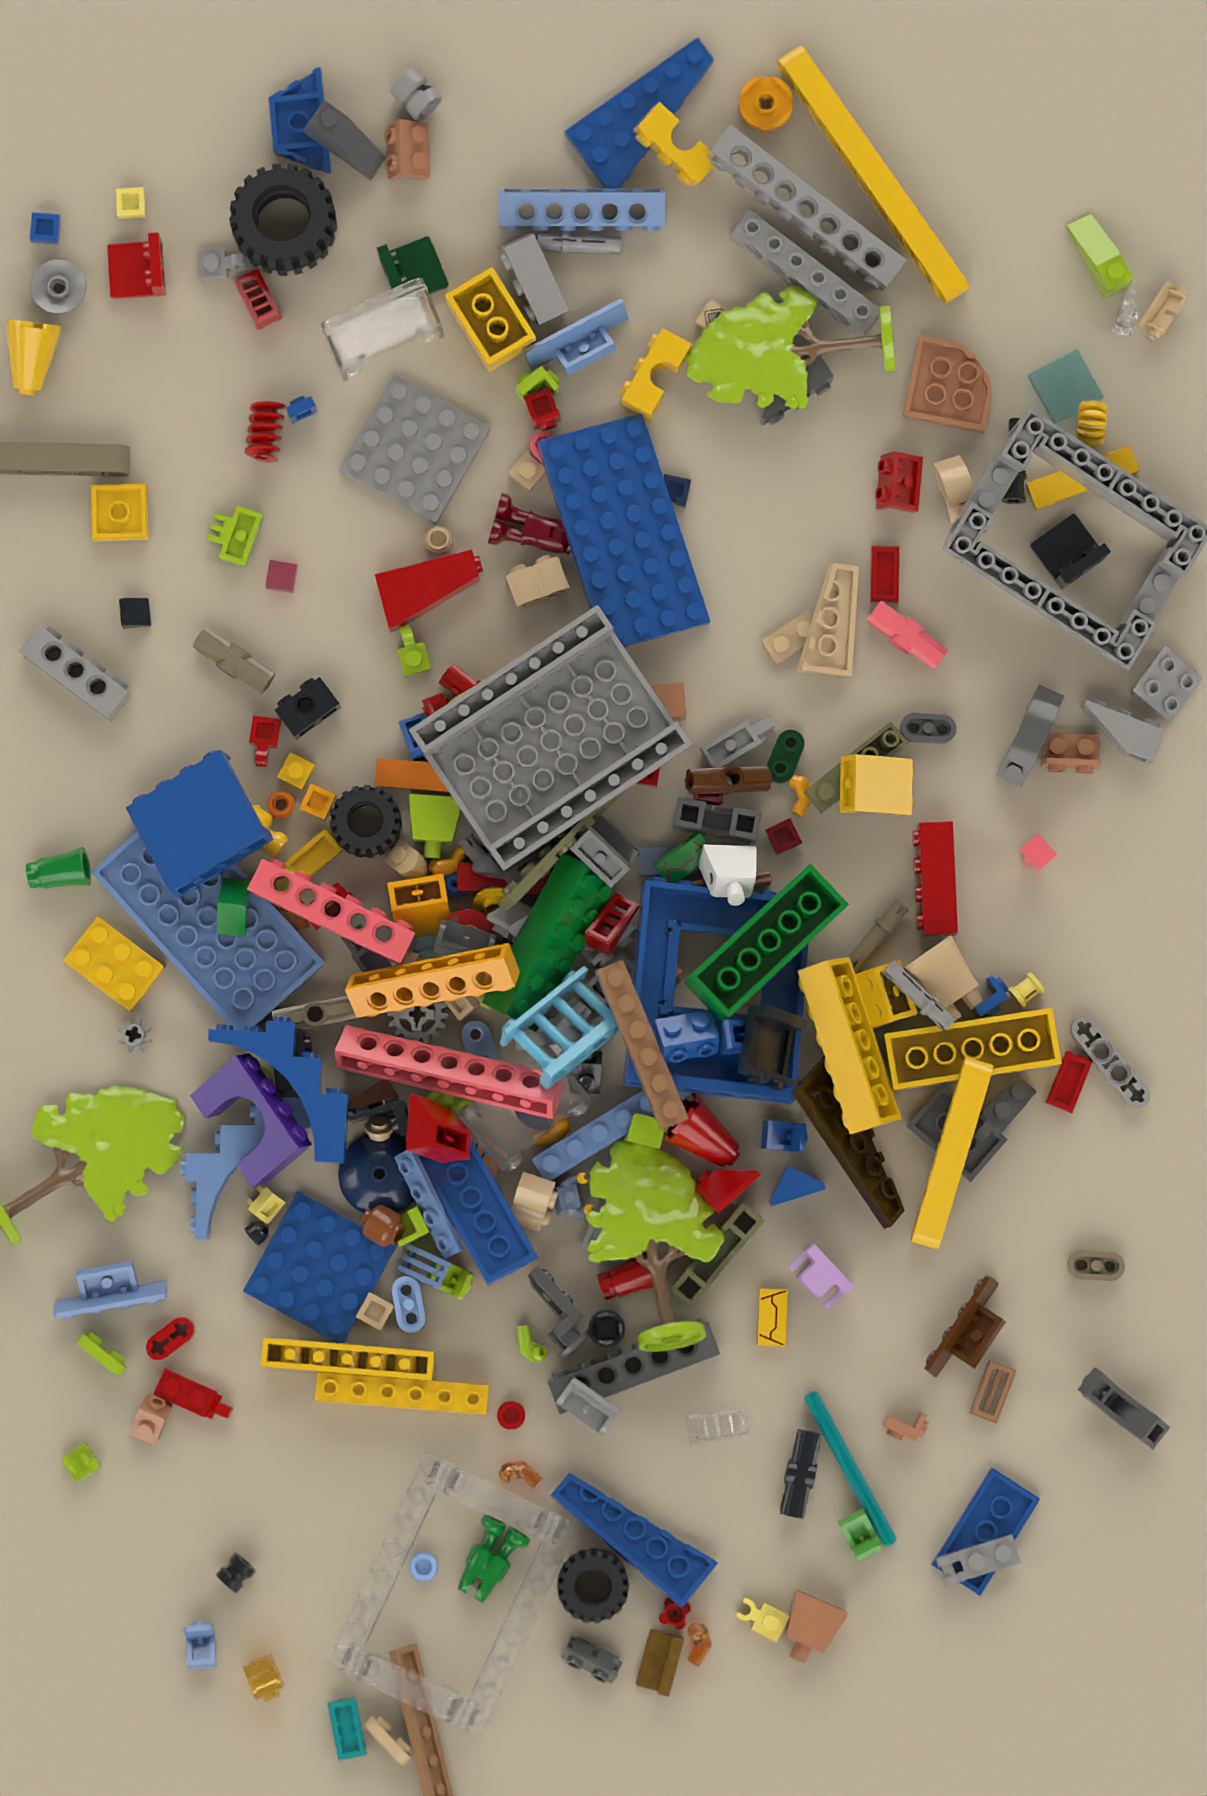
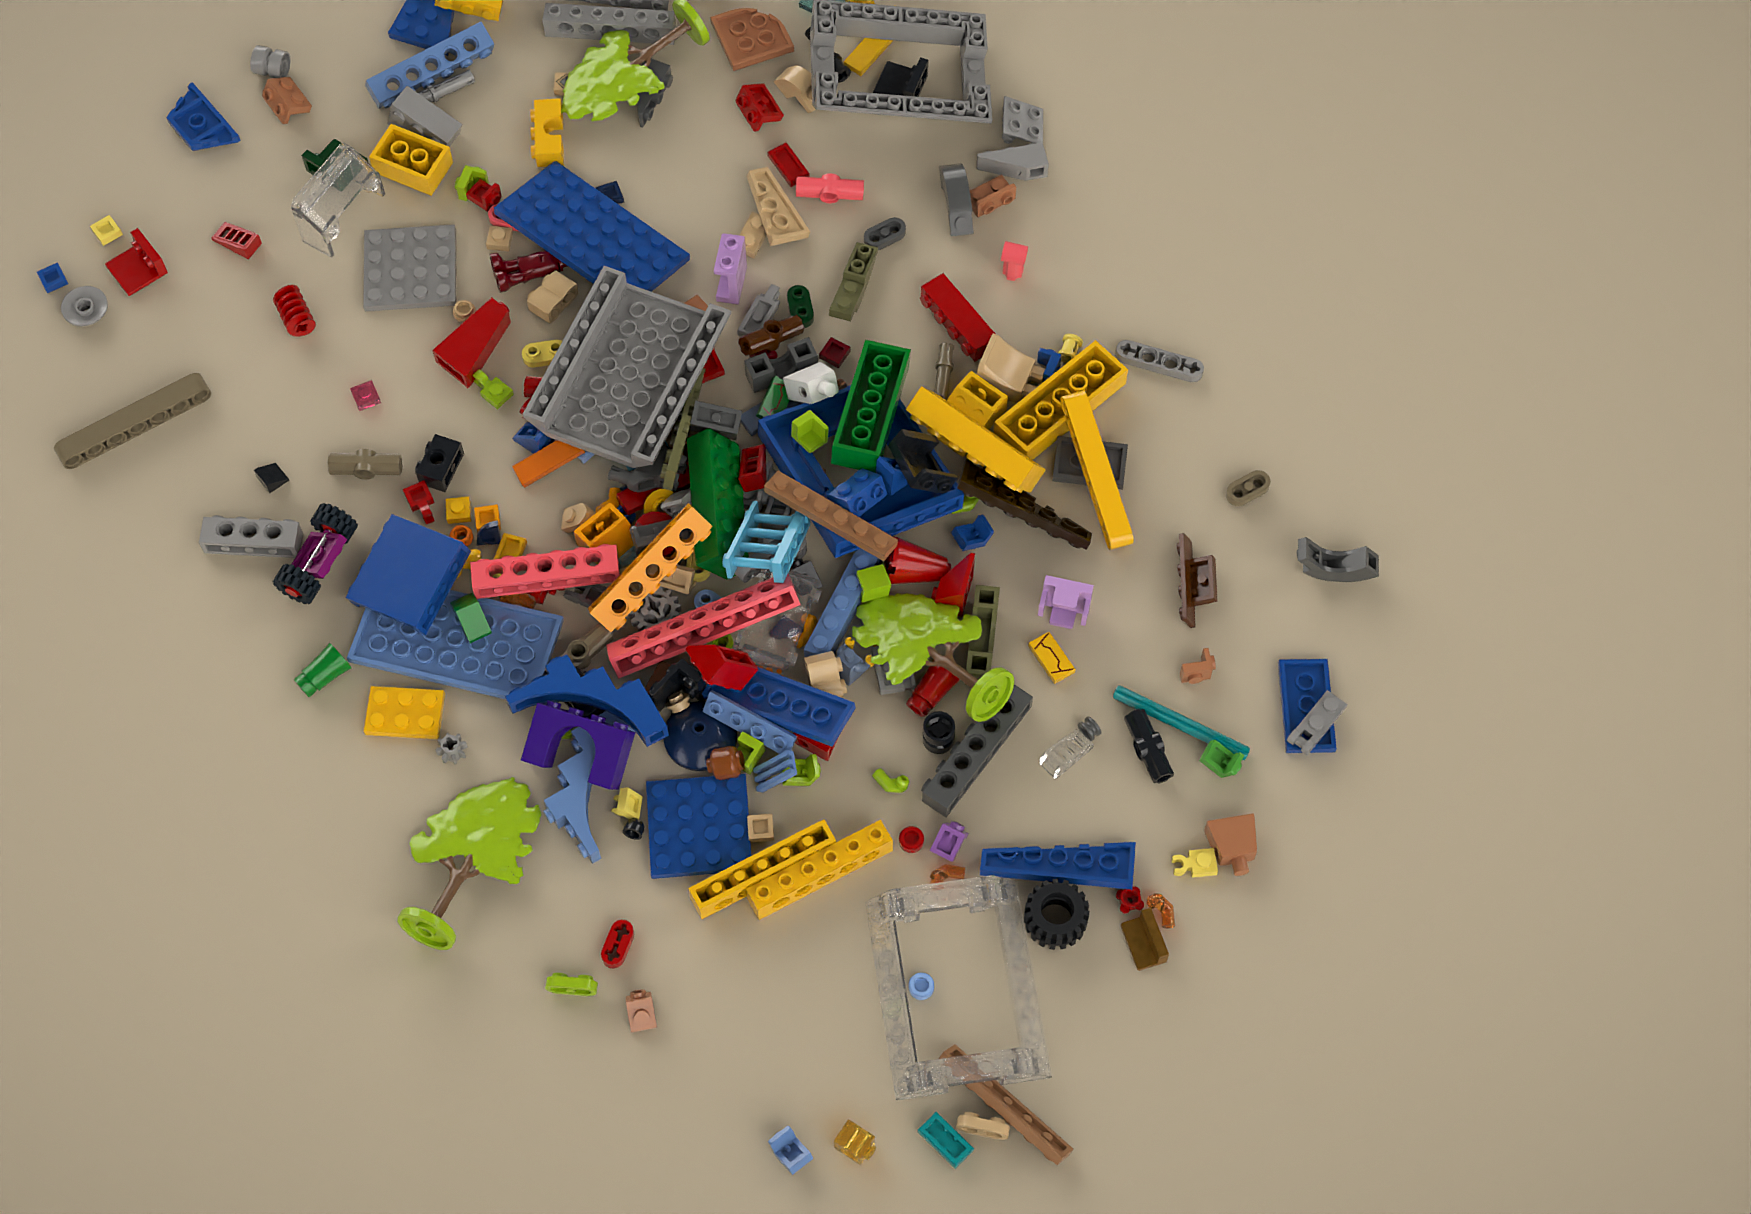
camera: 30 degrees left, 20 degrees down
(30, 353) = (88, 352): yellow cone -> none
(80, 1462) = (606, 1077): lime tile -> none
(108, 1288) = (544, 934): medium blue bracket -> none
(119, 512) = (219, 419): yellow plate -> none
(125, 738) = (316, 554): none -> plate
(191, 1395) = (662, 974): red hinge -> none
(215, 263) = (194, 235): light grey plate -> none
(236, 534) = (314, 386): lime hinge -> none
(237, 1570) = (781, 1079): black wheel -> none
(275, 185) = (215, 157): black tyre -> none
(301, 408) = (312, 285): blue plate -> none
(308, 822) = (489, 534): none -> dark blue tile
(344, 139) = (231, 109): dark grey slope -> none
(357, 798) = (525, 492): black tyre -> none
(408, 1304) = (785, 807): light blue plate -> none
(433, 822) = (580, 480): lime torso -> none
(489, 644) = (543, 355): none -> light yellow plate
(490, 1566) = (967, 951): green piece -> none
(545, 1442) = (949, 840): none -> medium lavender bracket
(562, 1305) = (896, 740): dark grey piece -> none
(580, 1657) = (1104, 971): dark grey hinge -> none
(581, 341) = (482, 141): medium blue bracket -> none
(588, 1406) = (963, 785): light grey hinge -> none
(685, 933) = (809, 431): none -> lime panel
(735, 675) = (732, 267): none -> lavender panel
(755, 1417) = (1089, 728): none -> dark grey bush
(794, 1185) = (1004, 560): blue slope -> none
(800, 784) = (822, 315): light orange arm -> none
(876, 785) = (874, 278): yellow panel -> none
(913, 990) = (998, 381): light grey pin -> none
(1000, 1368) = (1246, 630): medium nougat tile -> none
(1004, 1107) = (1111, 425): dark grey hinge -> none
(1068, 1082) = (1141, 390): red tile -> none

